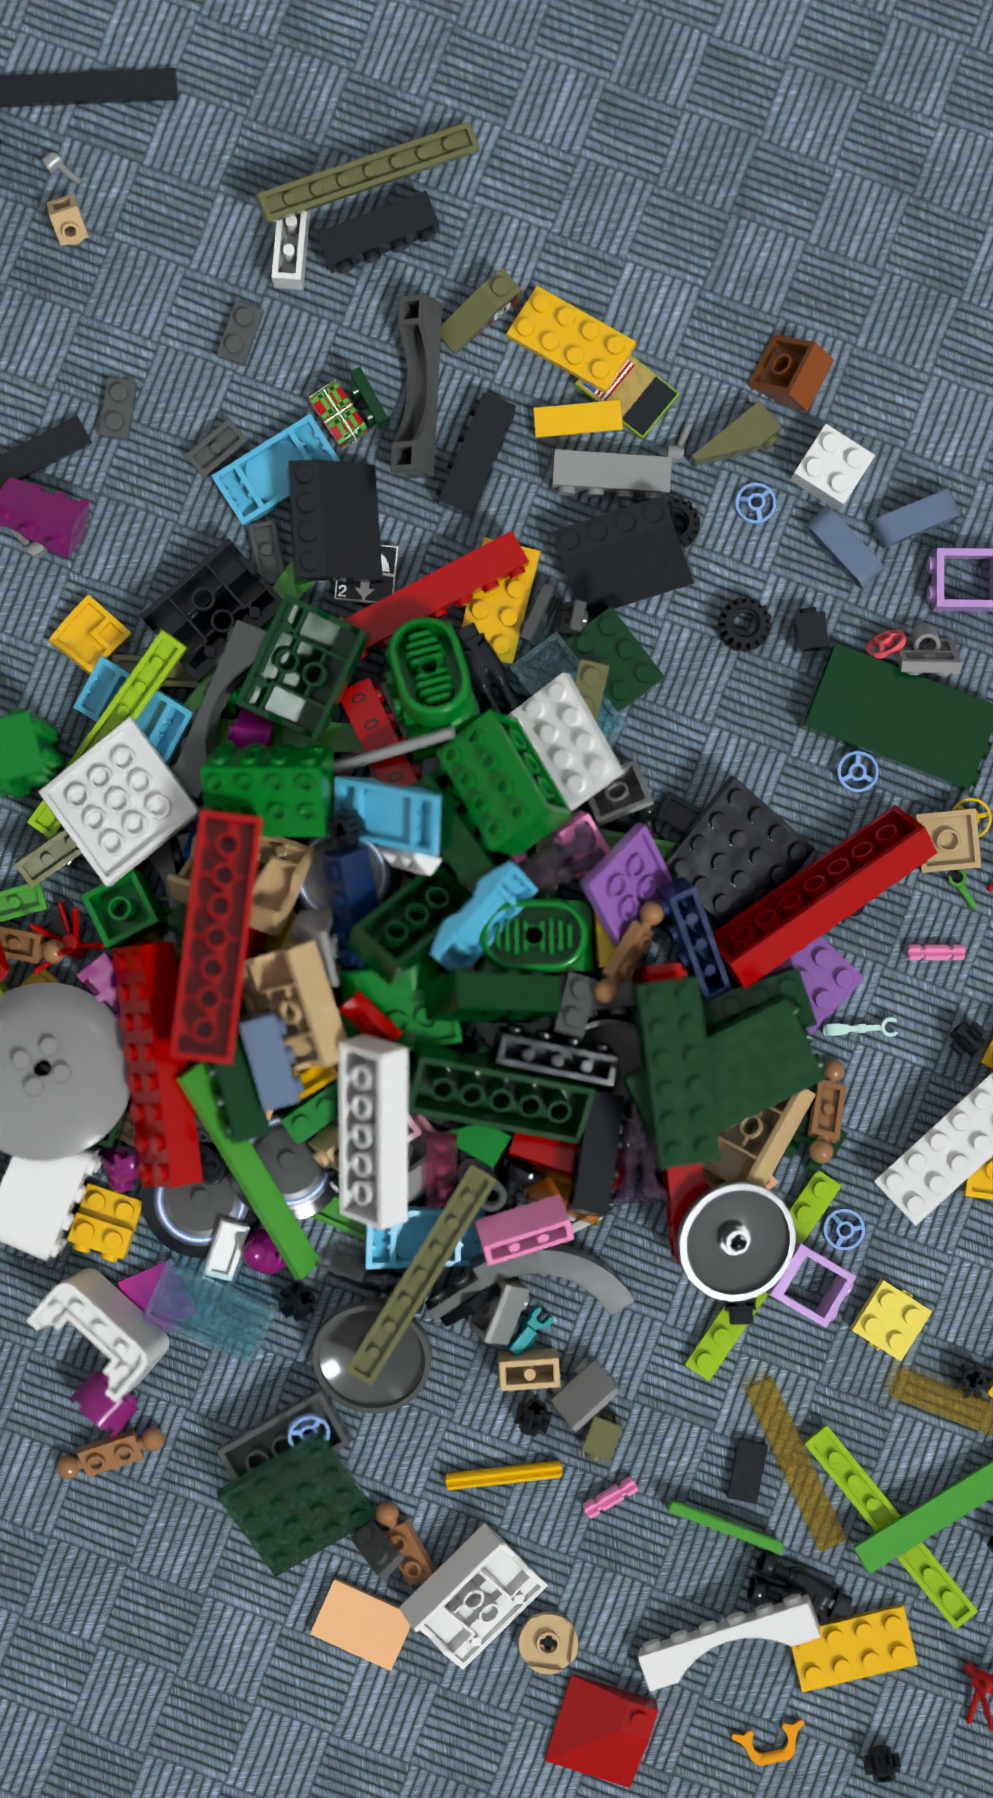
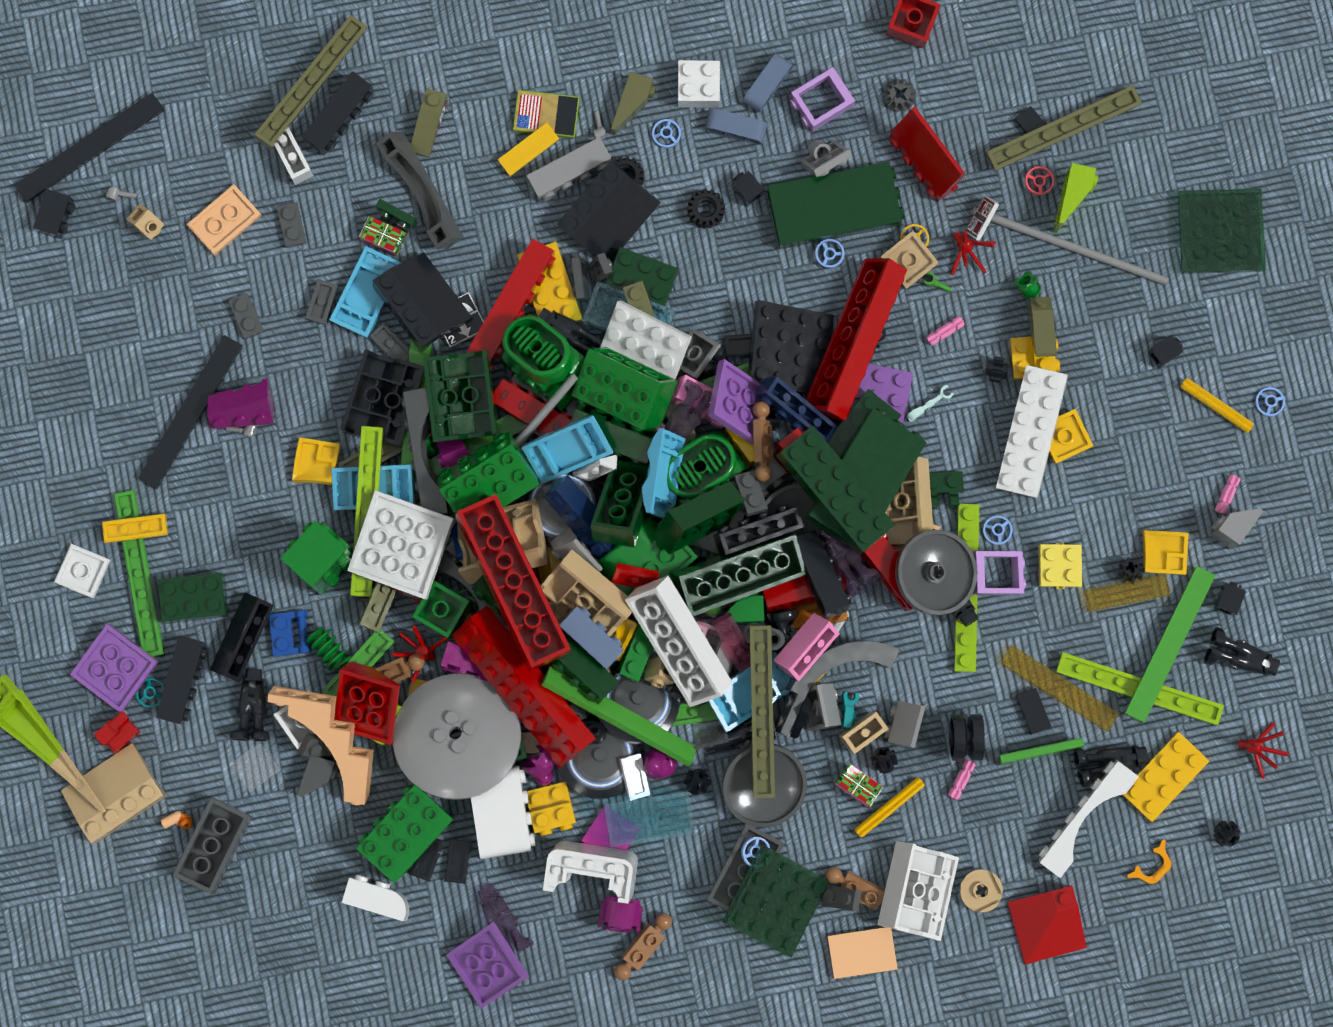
camera: 30 degrees left, 5 degrees down
(164, 276) = (224, 219): none -> light nougat tile
(347, 827) = (548, 471): black gear -> none
(476, 455) = (481, 208): black brick -> none
(483, 1428) = (858, 785): none -> piece
(571, 339) = (494, 105): yellow plate -> none
(601, 1436) = (931, 743): olive brick -> none
(647, 1455) = (967, 737): none -> black wheel
(791, 371) = (637, 43): dark orange slope -> none
(827, 1112) = (941, 465): medium nougat plate -> none
(884, 641) = (795, 167): coral piece -> none

